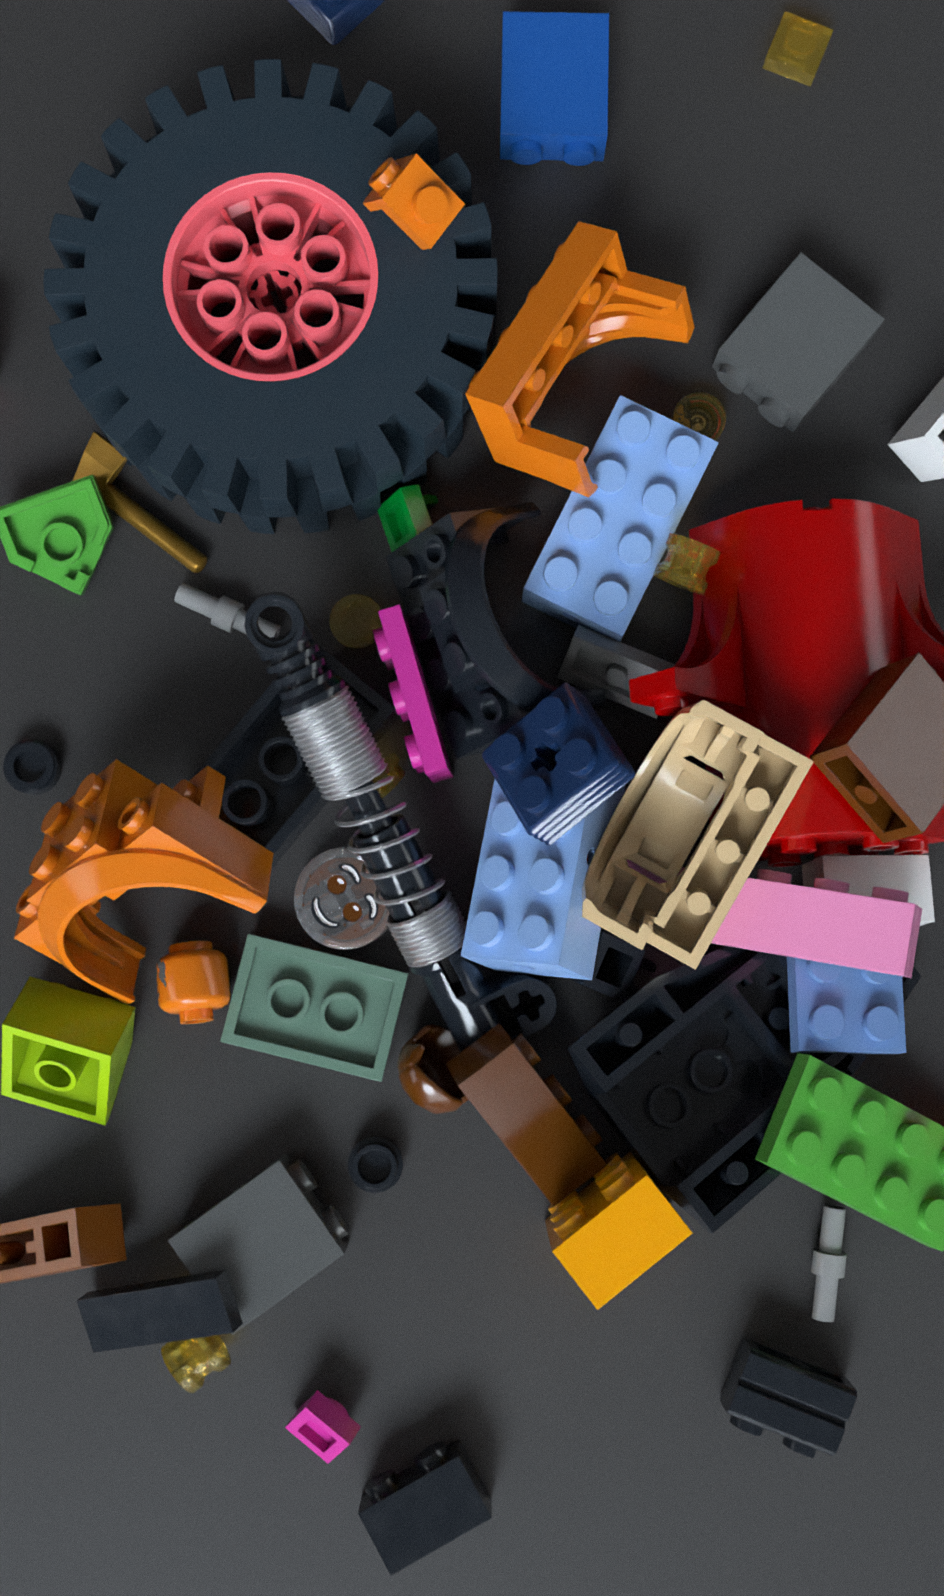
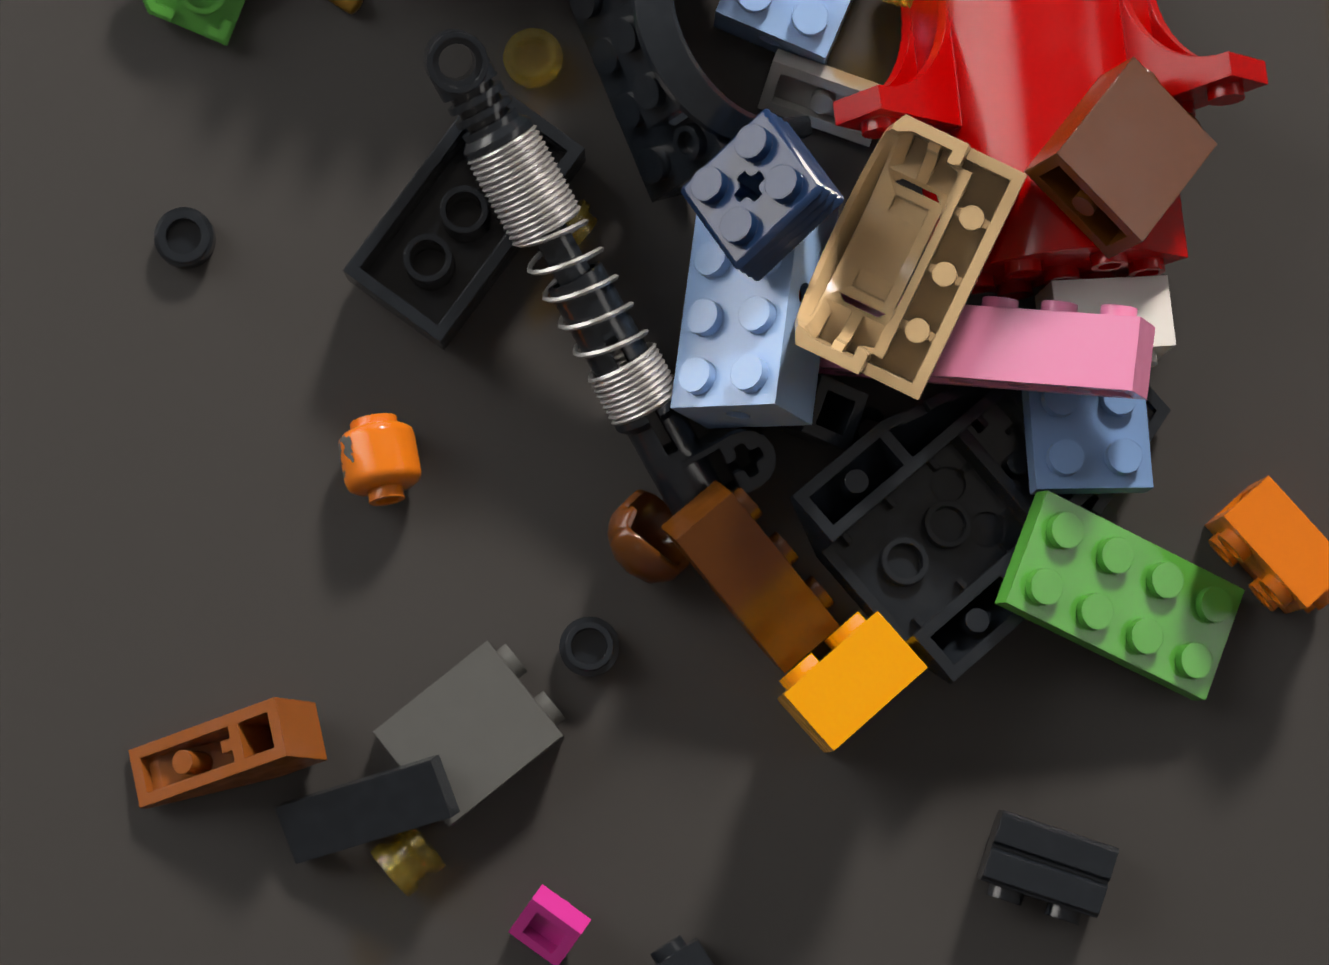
camera: 10 degrees left, 0 degrees up
(65, 1049) = (245, 542): lime slope -> none
(127, 836) = (293, 300): orange piece -> none
(224, 612) = (386, 56): light grey bar -> none
(314, 1007) = (513, 480): sand green plate -> none
(338, 902) = (534, 363): clear head -> none
(412, 695) = (601, 135): dark pink plate -> none
(828, 1263) = (1086, 723): light grey bar -> none

